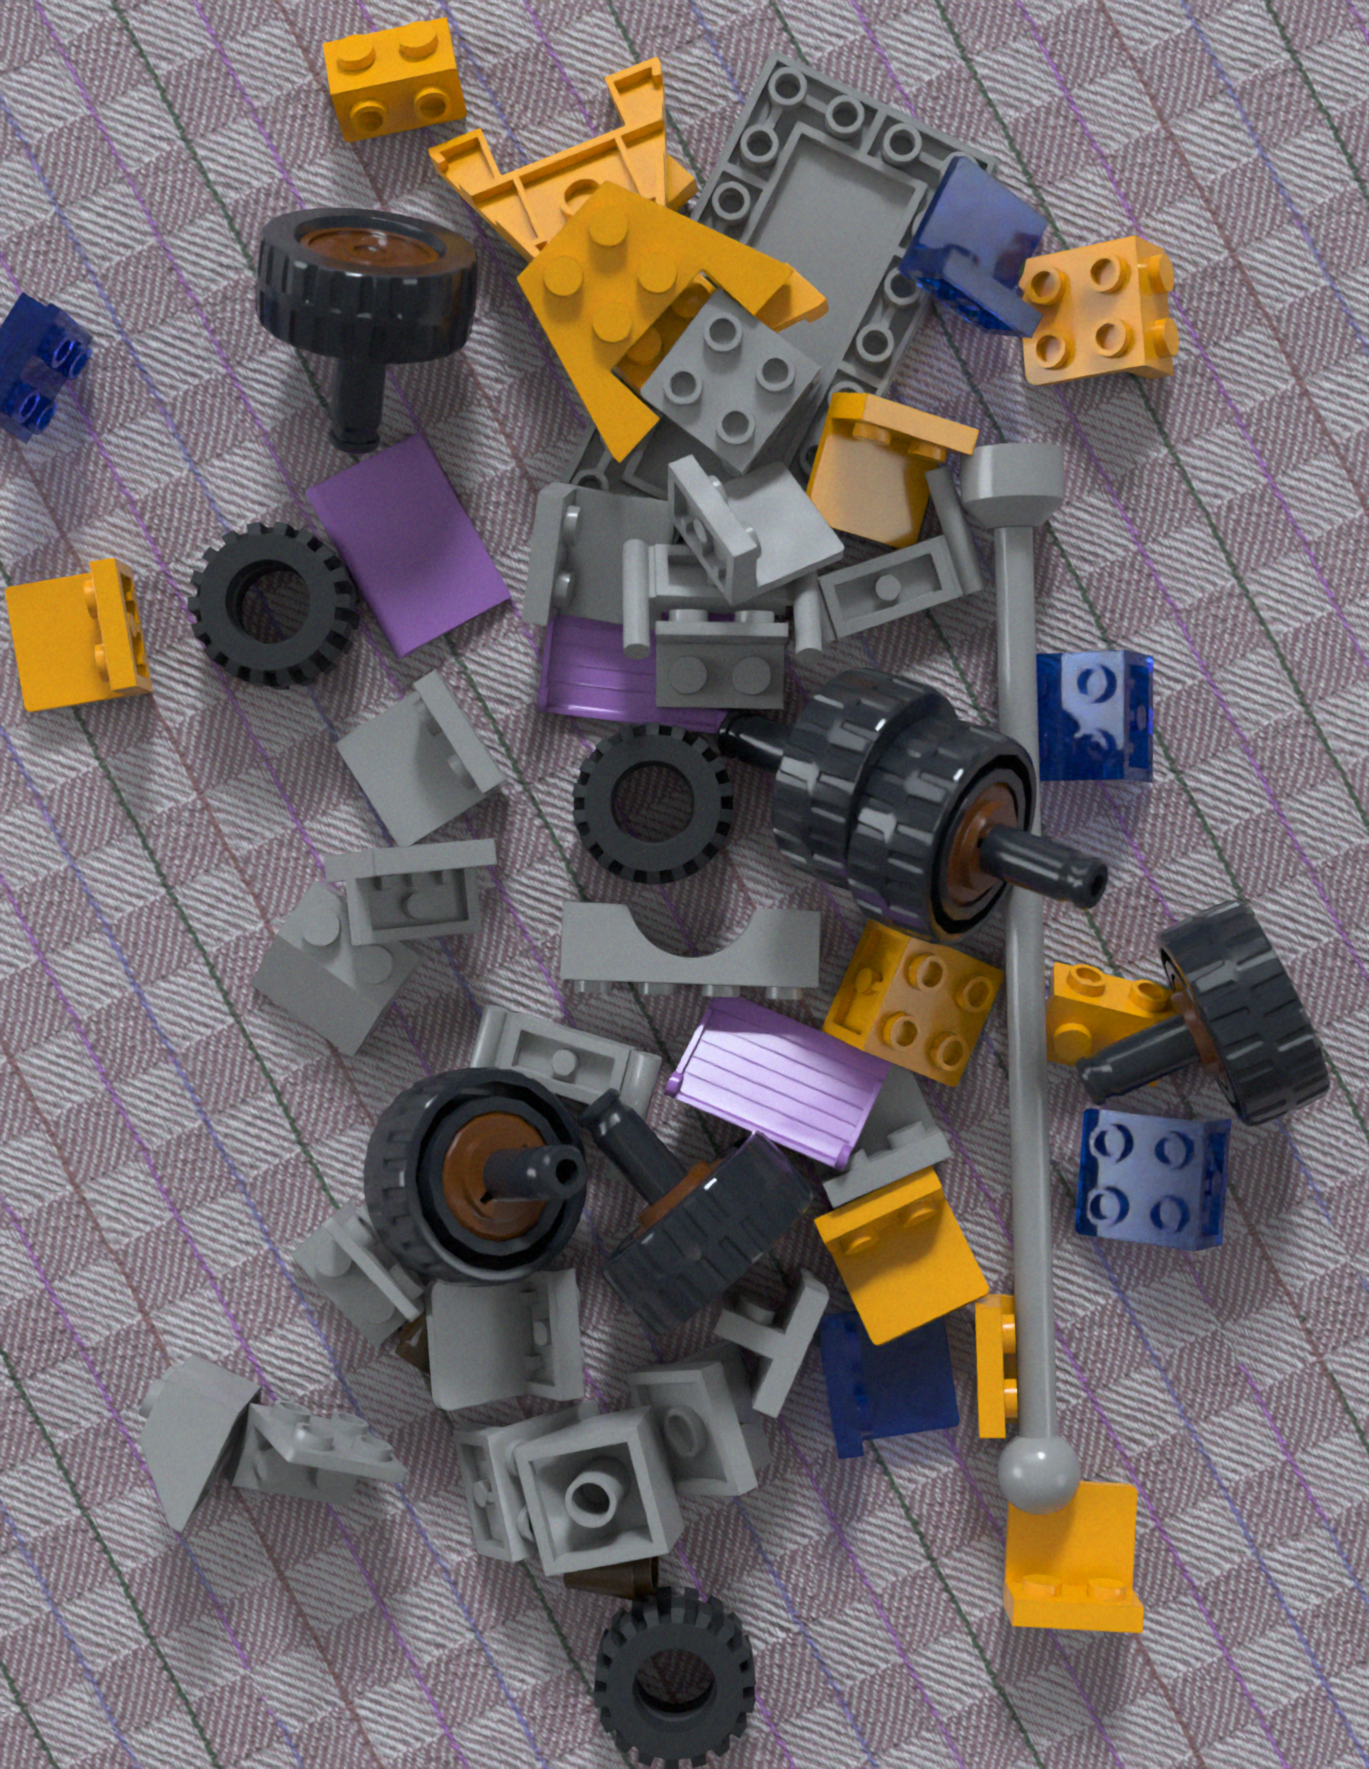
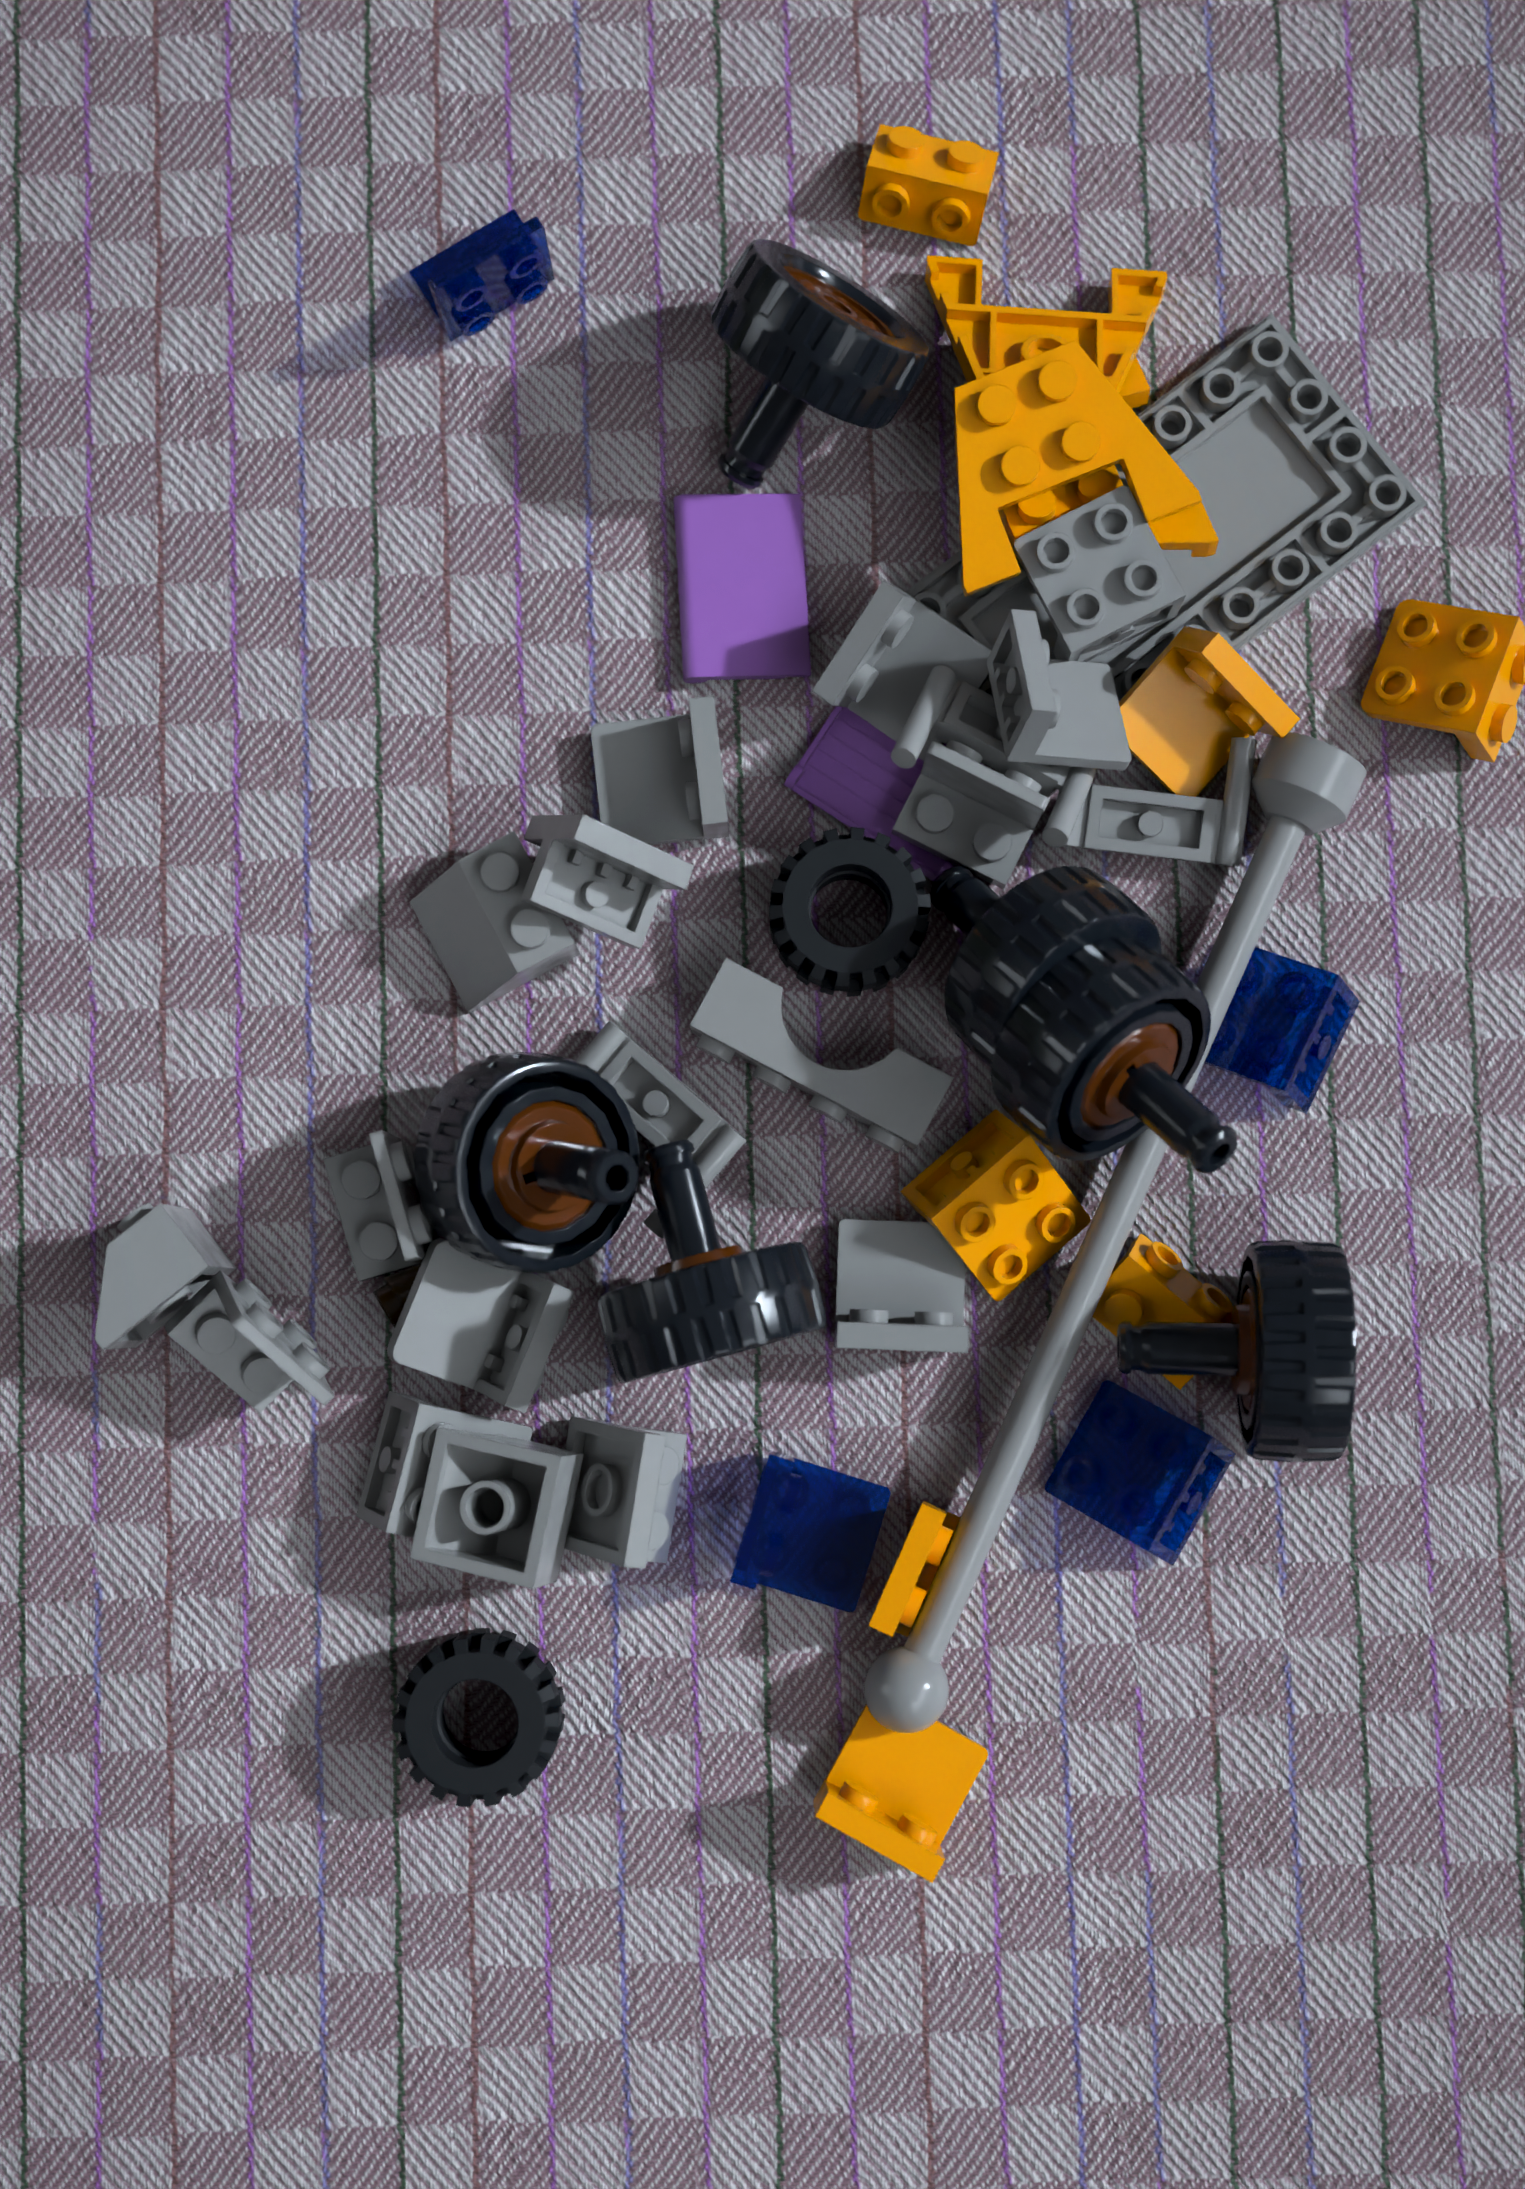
camera: 25 degrees right, 5 degrees down
(79, 638) = (412, 526): light orange bracket -> none
(230, 576) = (589, 530): black tyre -> none
(620, 1580) = (474, 1597): dark brown cone -> none
(777, 1336) = (712, 1419): light grey bracket -> none
(779, 1079) = (844, 1212): piece -> none
(902, 1256) = (877, 1426): light orange bracket -> none
(976, 250) = (1369, 567): clear blue bracket -> none

